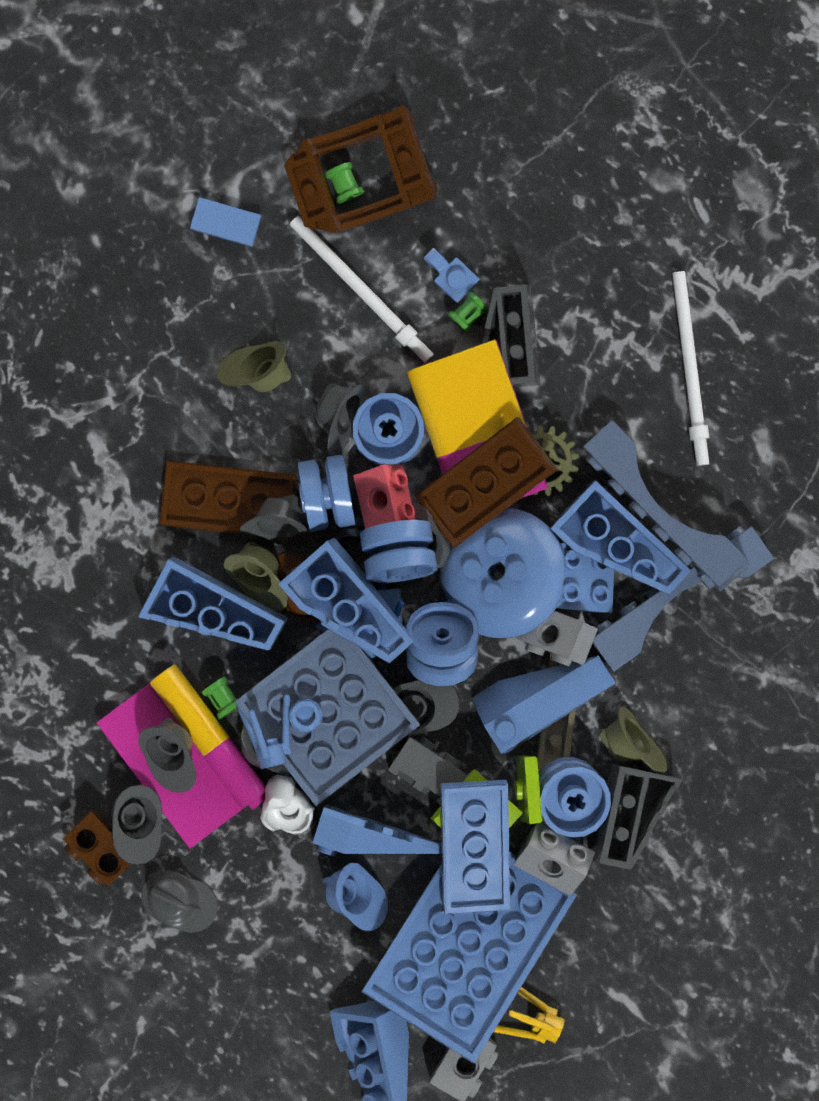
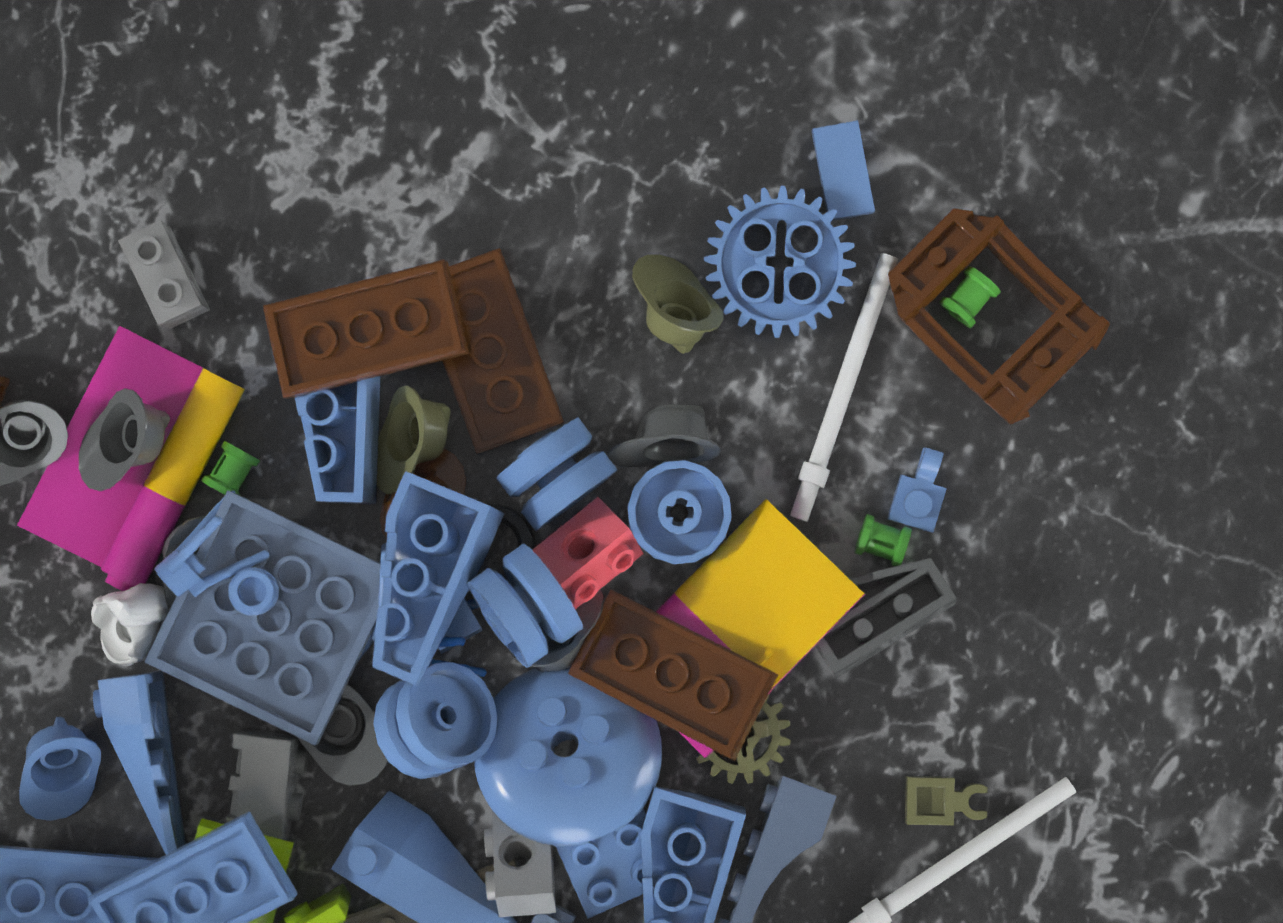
camera: 60 degrees right, 0 degrees up
(78, 678) = (163, 275): none -> light grey brick
(177, 566) = (365, 329): none -> reddish brown tile
(249, 316) = (823, 263): none -> medium blue gear
(276, 522) = (488, 427): dark grey piece -> none
(646, 360) = (934, 800): none -> olive plate

